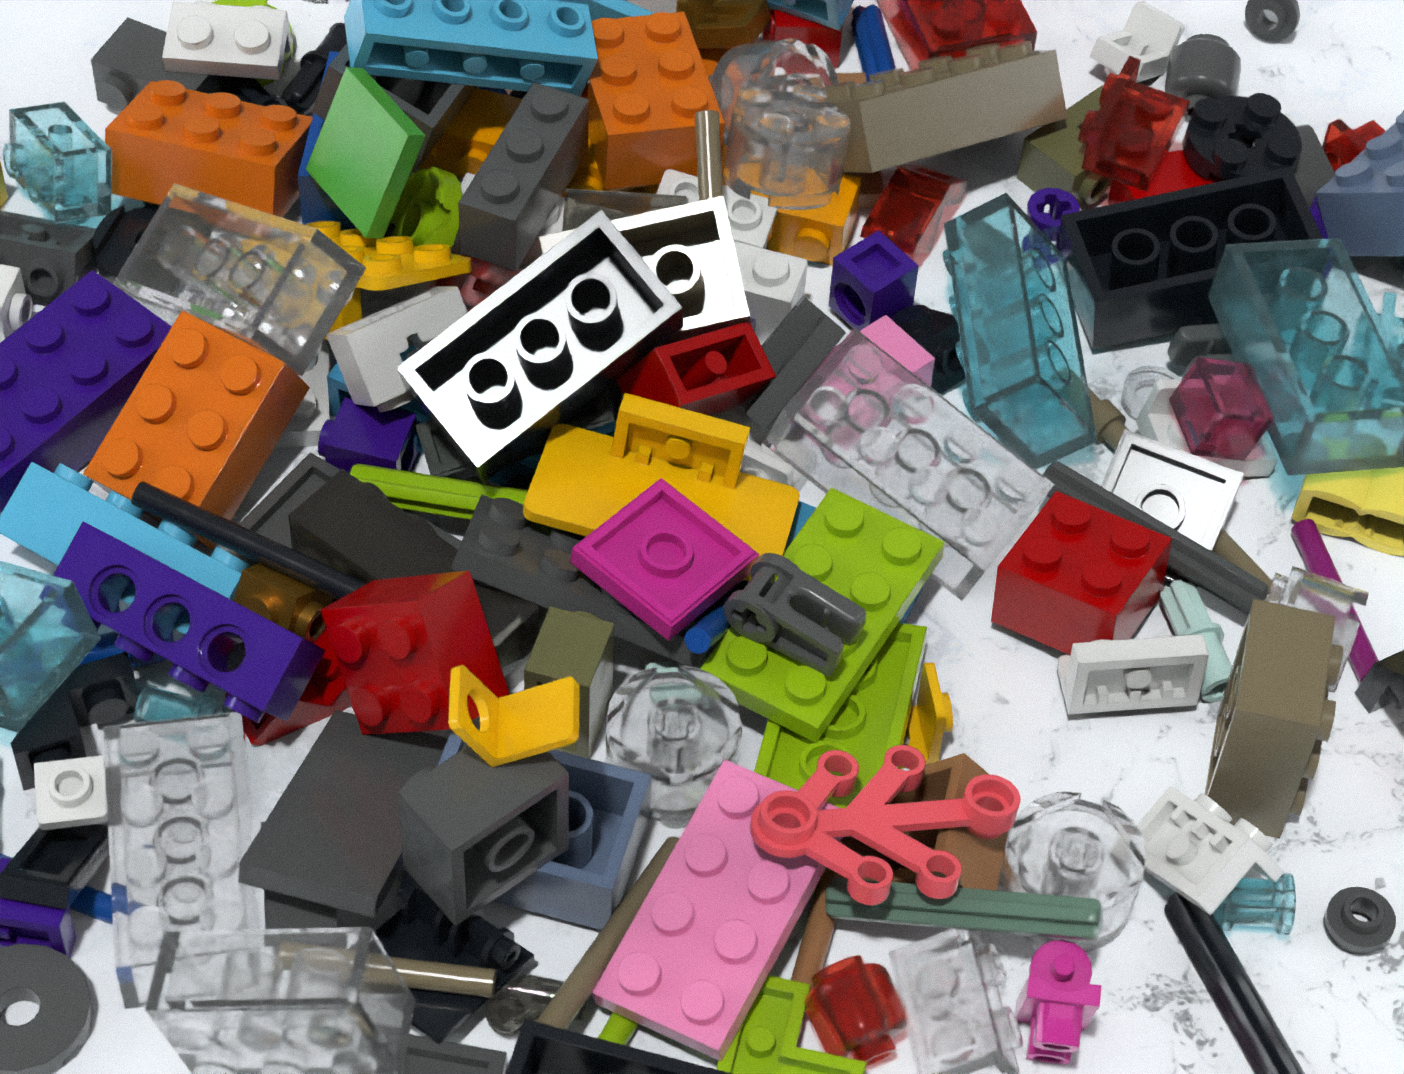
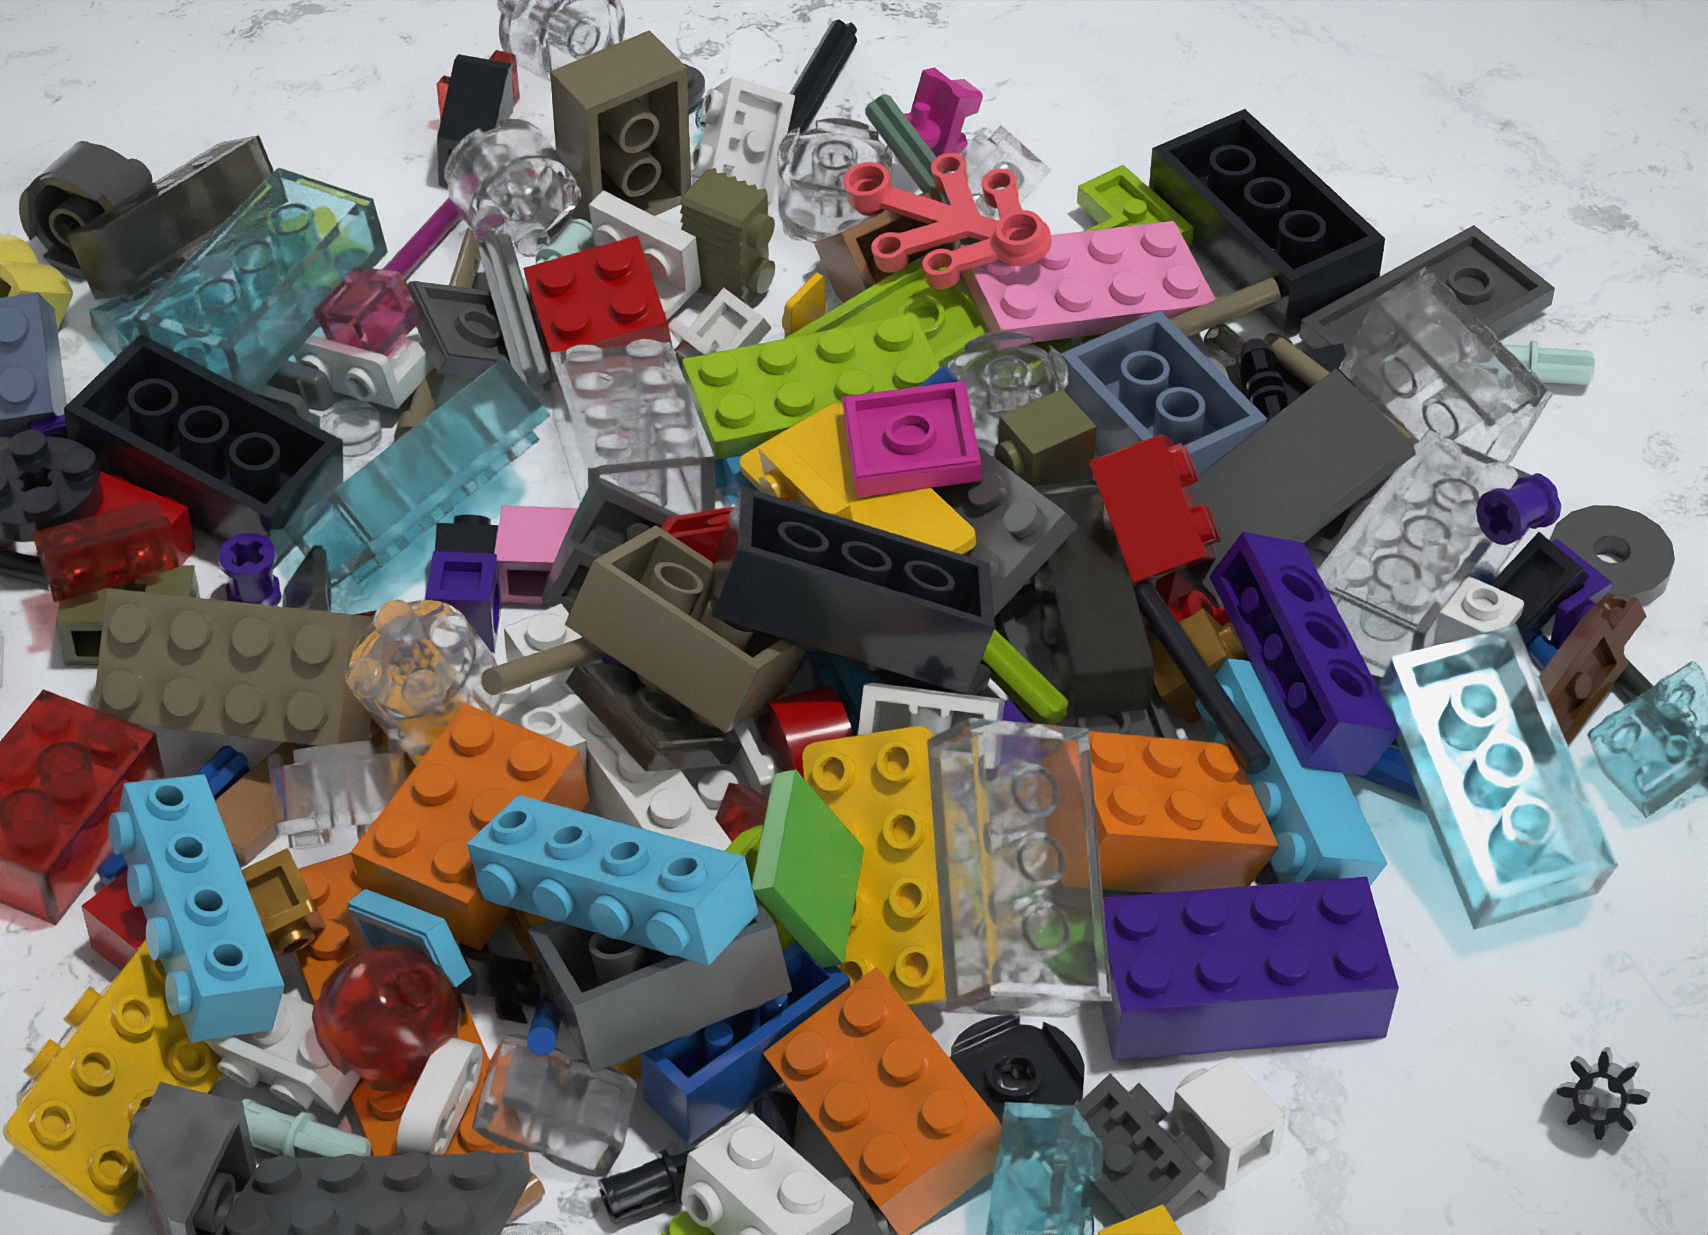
camera: 135 degrees left, 5 degrees down
(95, 874) = (1508, 513): none -> dark purple bush
(481, 827) = (1232, 329): dark grey brick -> none
(516, 723) = (1180, 270): yellow bracket -> none
(524, 176) = (686, 781): dark grey brick -> none
(794, 614) = (867, 355): dark grey piece -> none
(856, 1010) = (1059, 201): clear red head -> none
(985, 650) = (720, 327): none -> white bracket
(1071, 718) = (730, 234): none -> olive brick

